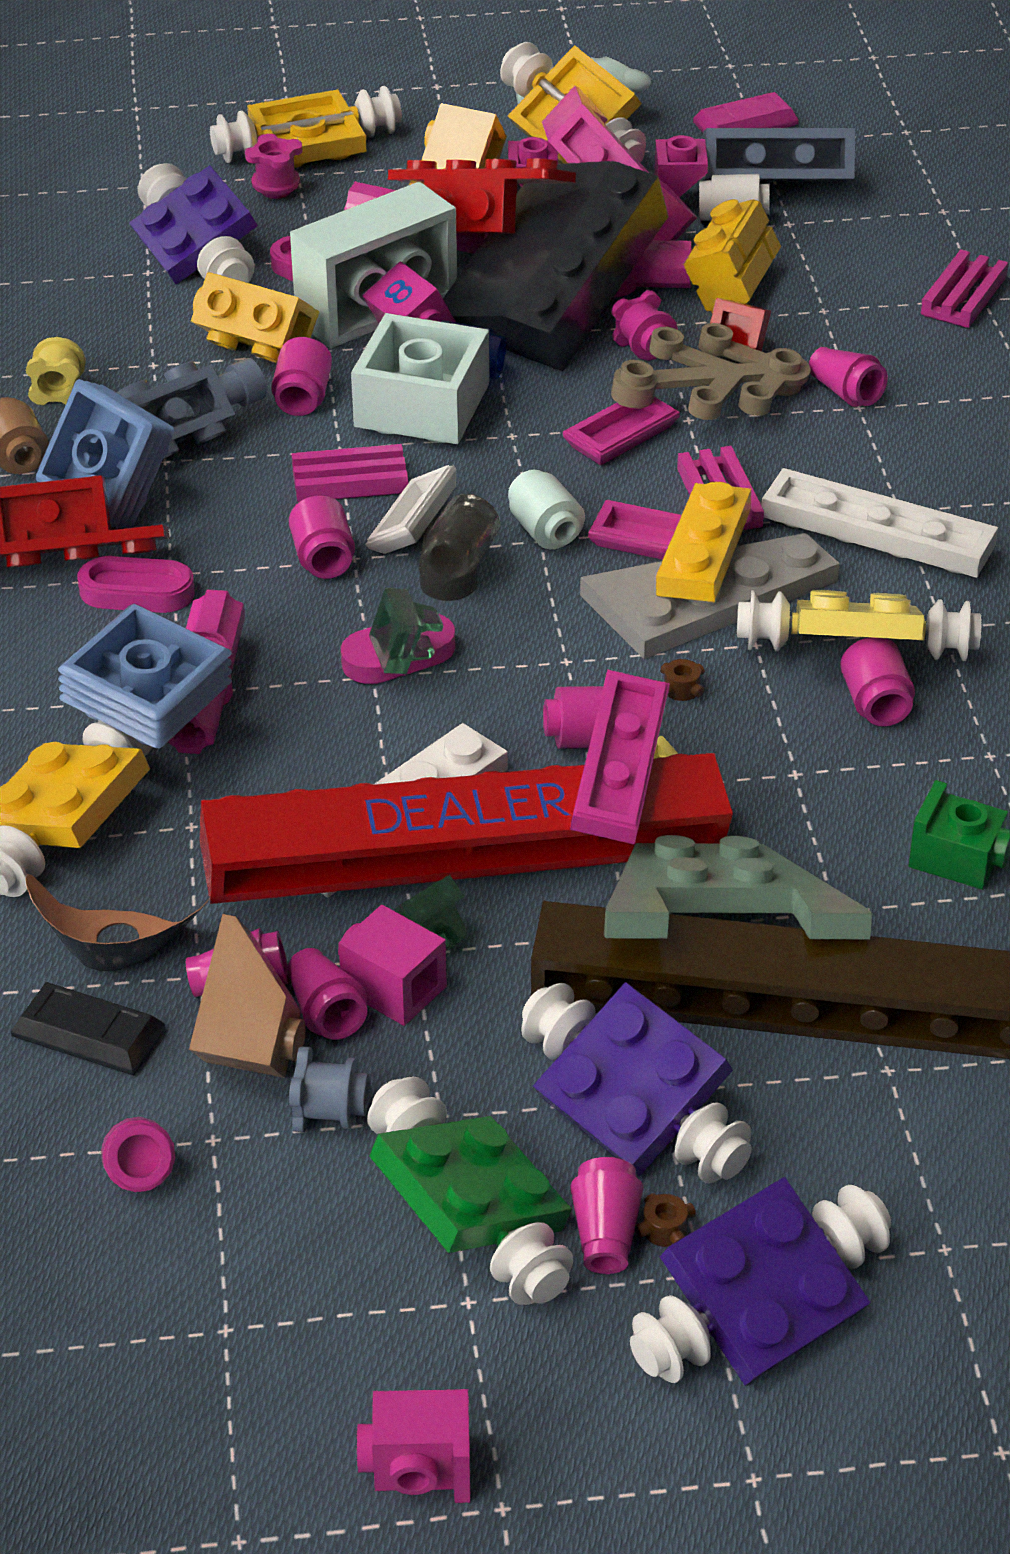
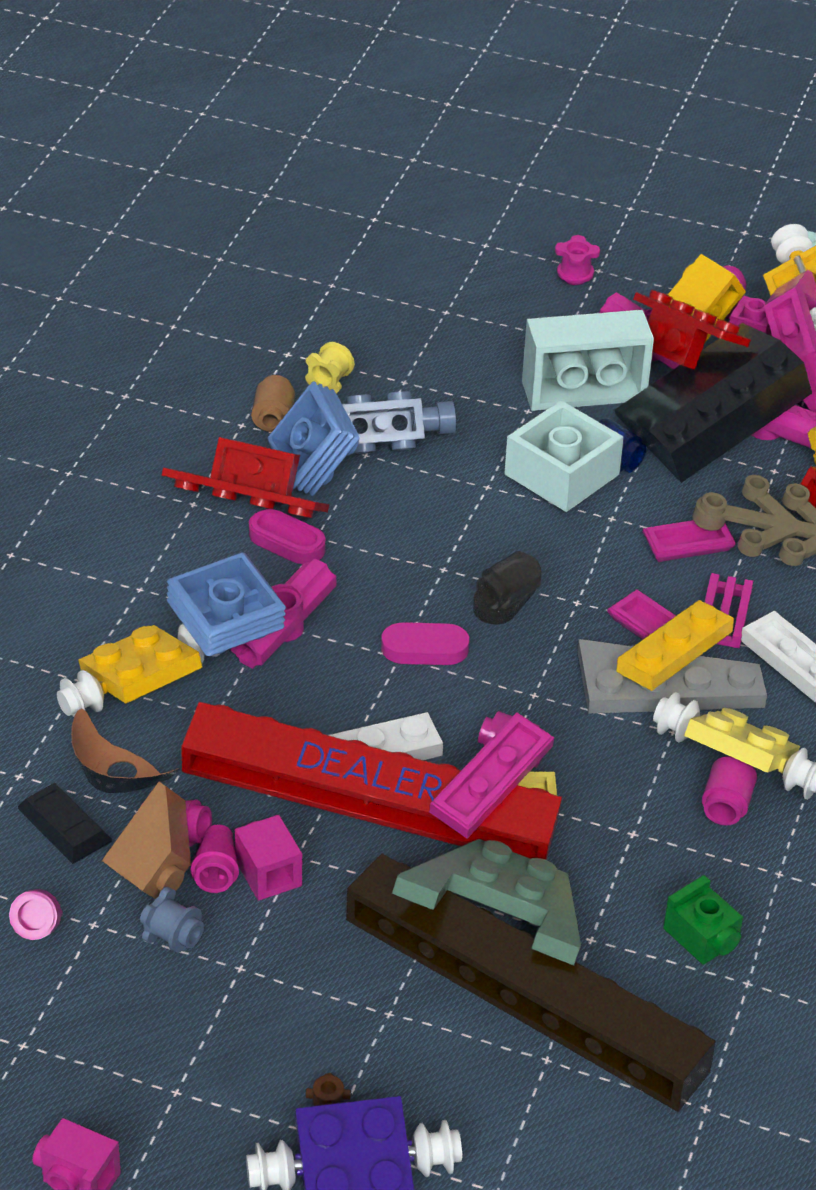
camera: 25 degrees right, 0 degrees up
(193, 224) = (490, 289): dark purple plate -> none
(250, 316) = (483, 371): yellow brick -> none
(301, 375) = (489, 425): dark pink brick -> none
(317, 120) = (624, 236): plate -> none
(322, 536) = (423, 547): dark pink brick -> none
(350, 472) = (478, 507): dark pink tile -> none
(399, 629) = (423, 634): clear green tile -> none
(406, 294) = (593, 395): dark pink brick -> none
(413, 510) = (490, 553): white tile -> none
(437, 911) = (314, 831): clear green tile -> none
(472, 1188) = (216, 1020): green plate -> none
(545, 509) = (587, 581): light aqua brick -> none
(606, 1212) = (290, 1072): dark pink cone -> none
(635, 1080) = (365, 996): dark purple plate -> none
(637, 321) = (753, 462): dark pink brick -> none
(683, 679) = (599, 738): reddish brown piece -> none

